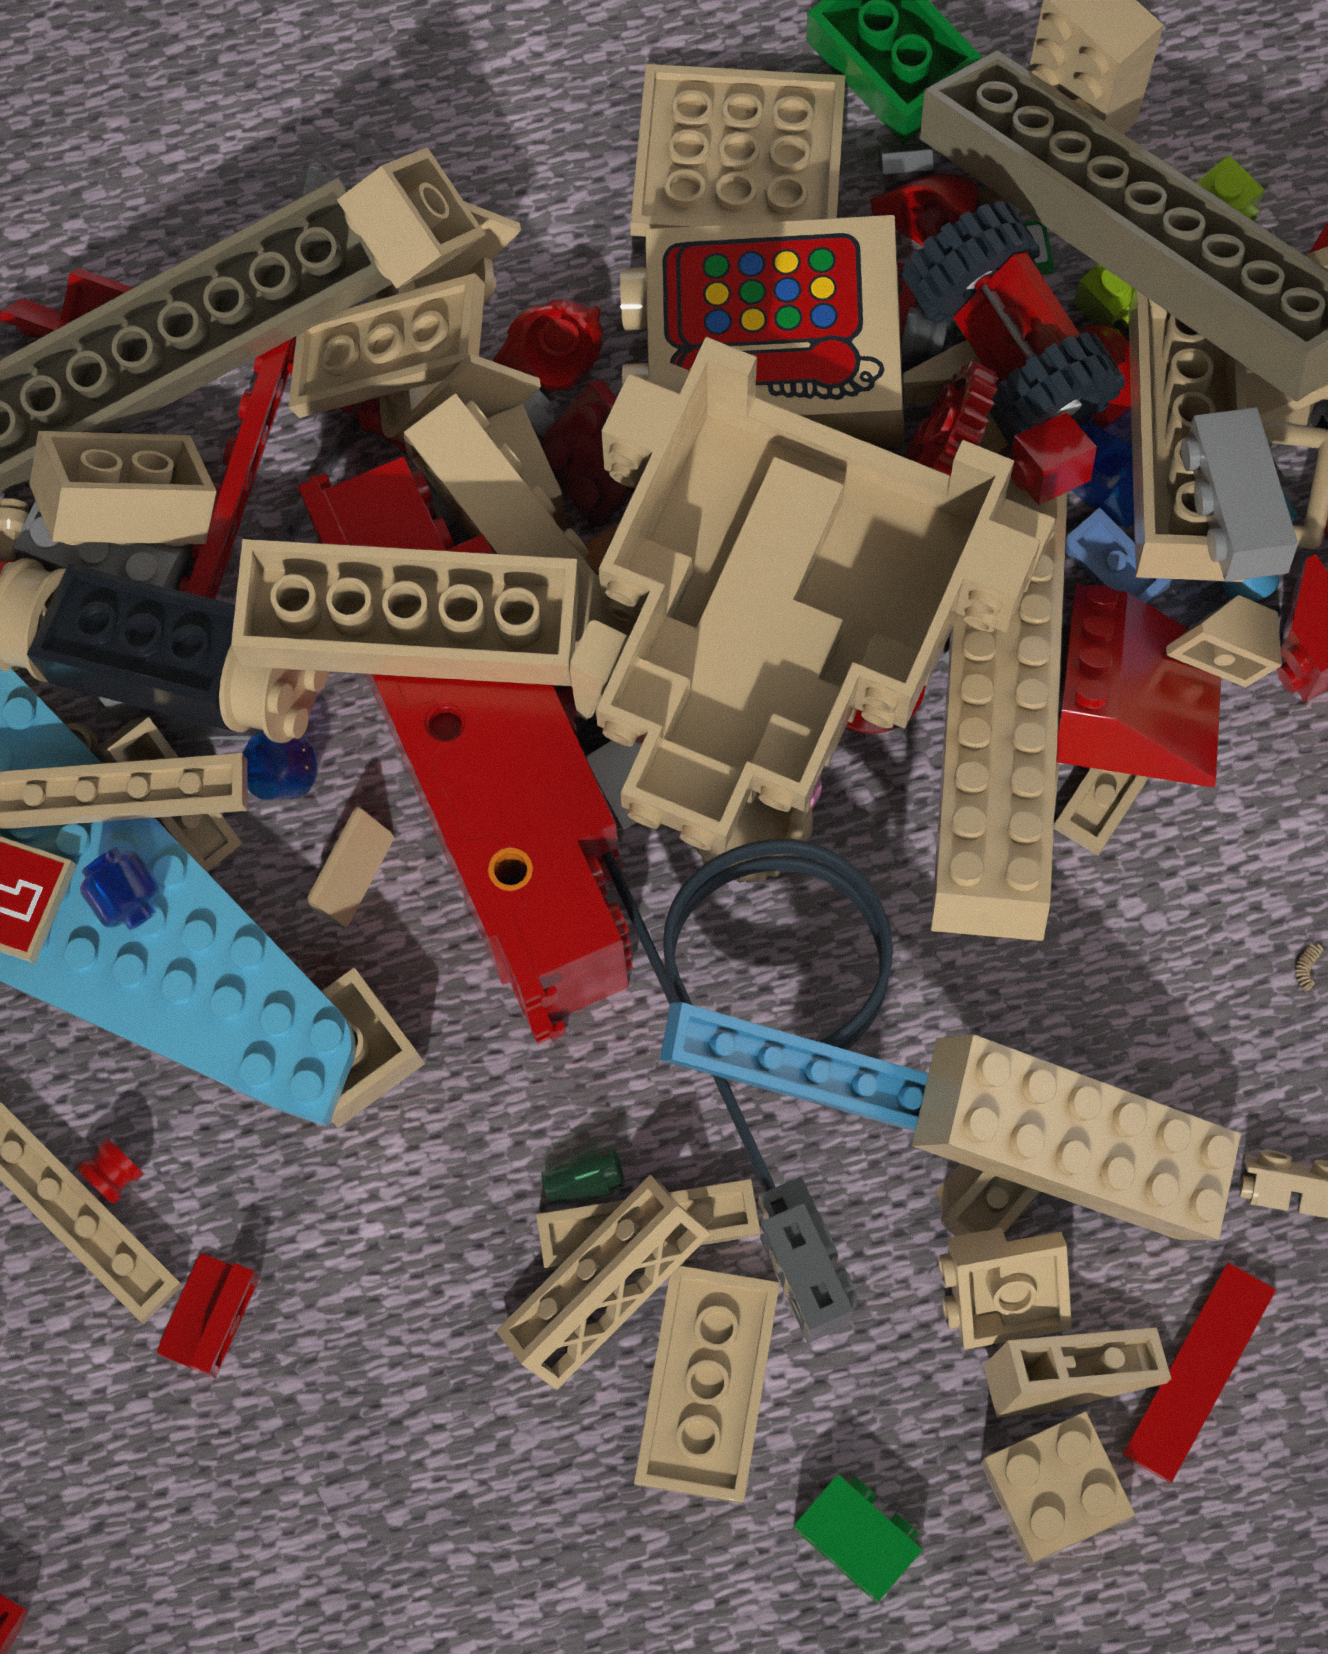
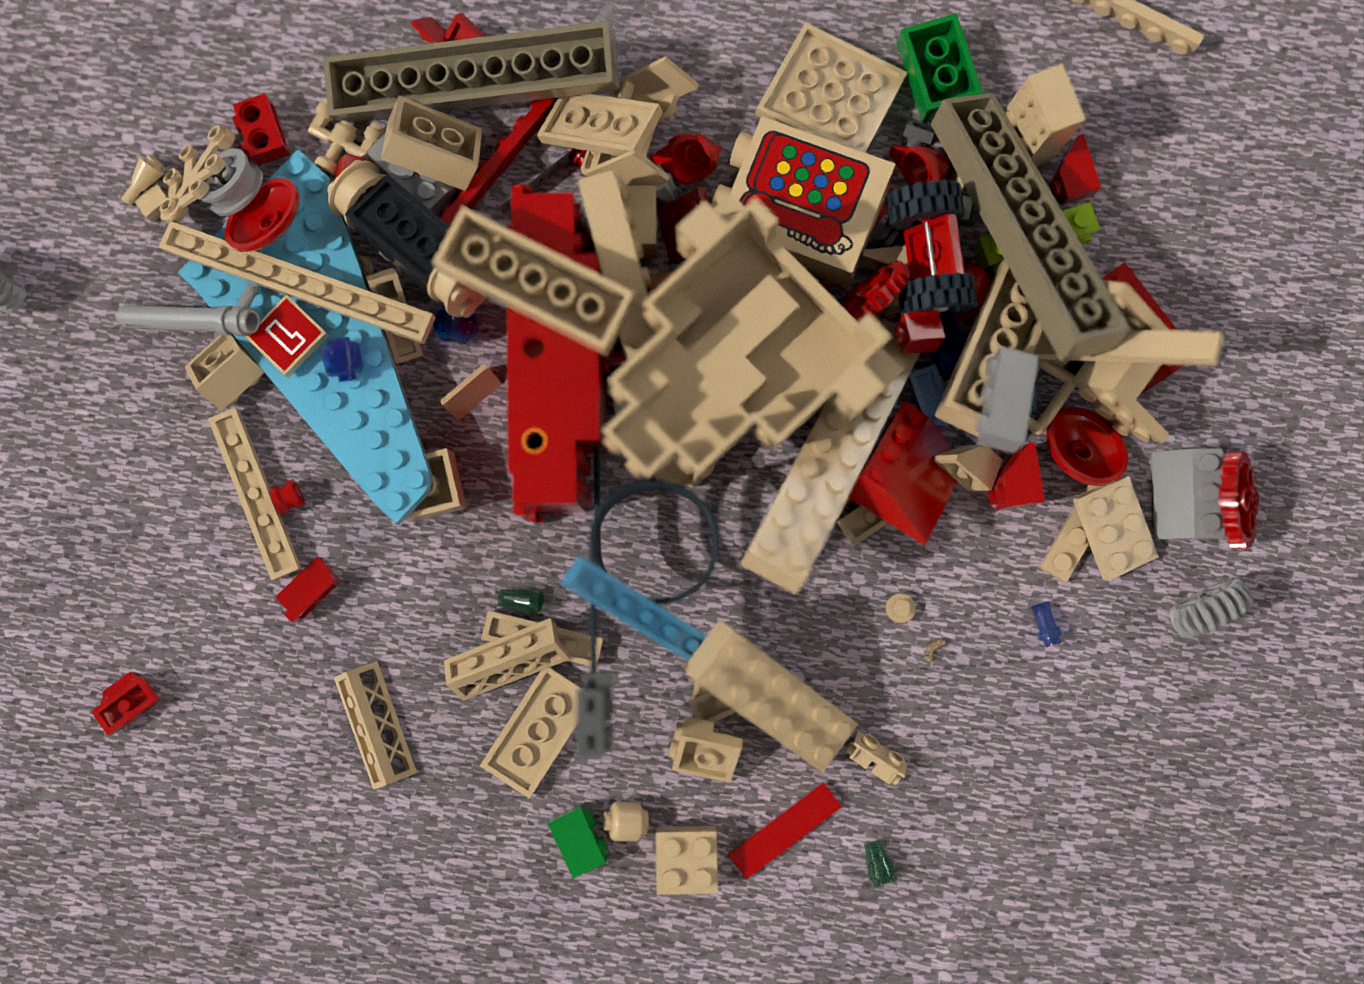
camera: 25 degrees right, 10 degrees up
(410, 217) = (636, 59): tan brick -> none
(413, 1499) = (366, 730): none -> tan fence
(594, 664) = (621, 351): tan slope -> none
(925, 1470) = (626, 821): none -> tan head
(1073, 1370) = (722, 804): tan slope -> none
(1186, 123) = (1076, 174): none -> red slope
(1222, 922) = (900, 608): none -> tan plate

